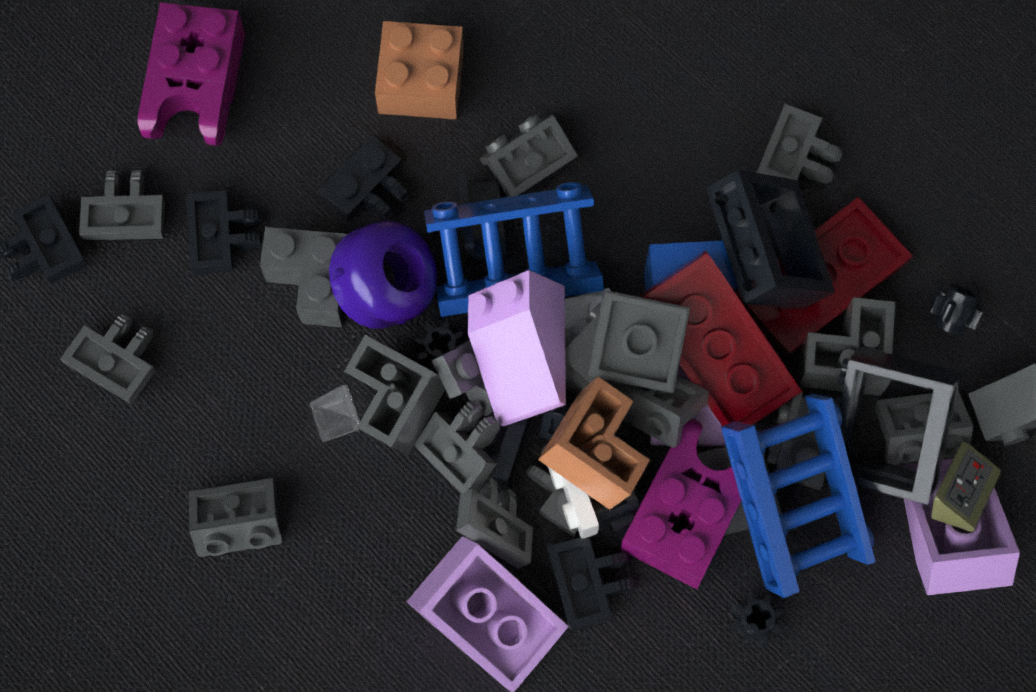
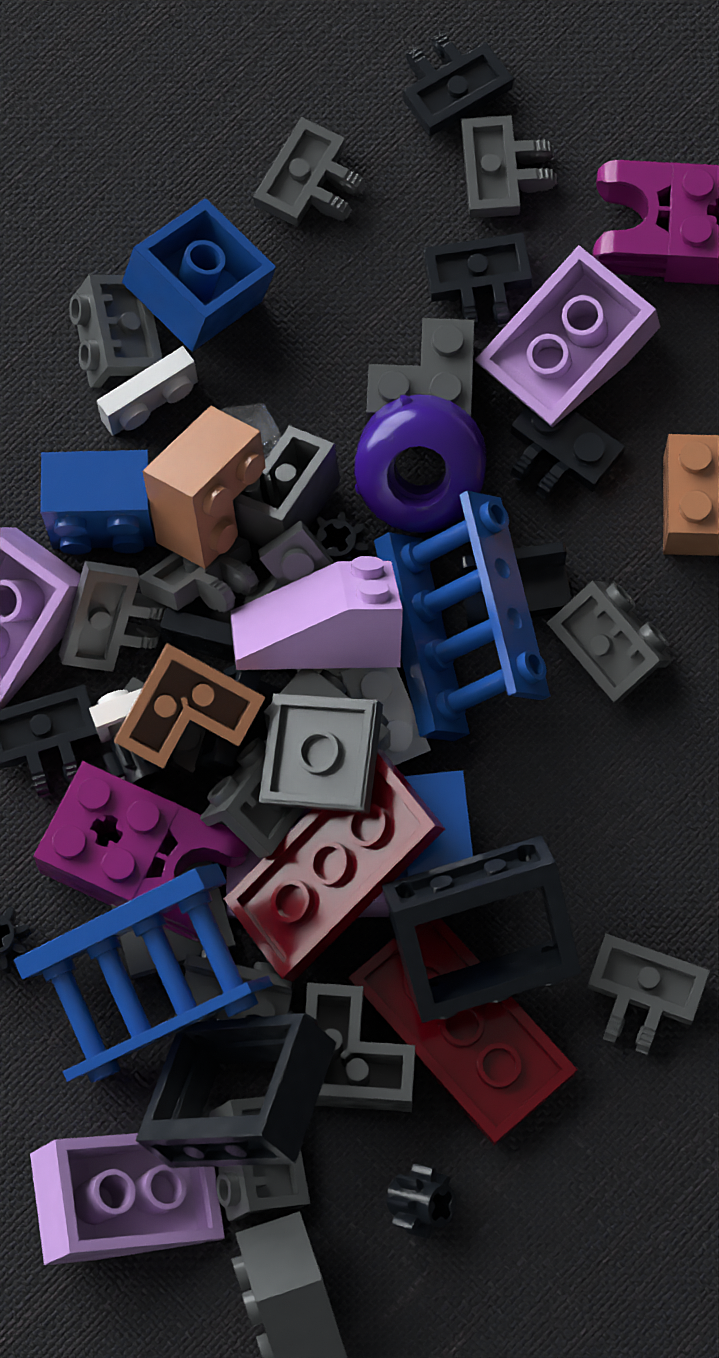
camera: 90 degrees right, 0 degrees up
(199, 441) = (198, 274): none -> blue brick
(283, 162) = (569, 337): none -> lavender slope
(305, 504) = (135, 399): none -> white plate
(394, 525) = (96, 501): none -> blue brick
(401, 434) = (196, 482): none -> nougat brick
(965, 489) = (164, 1197): slope -> none

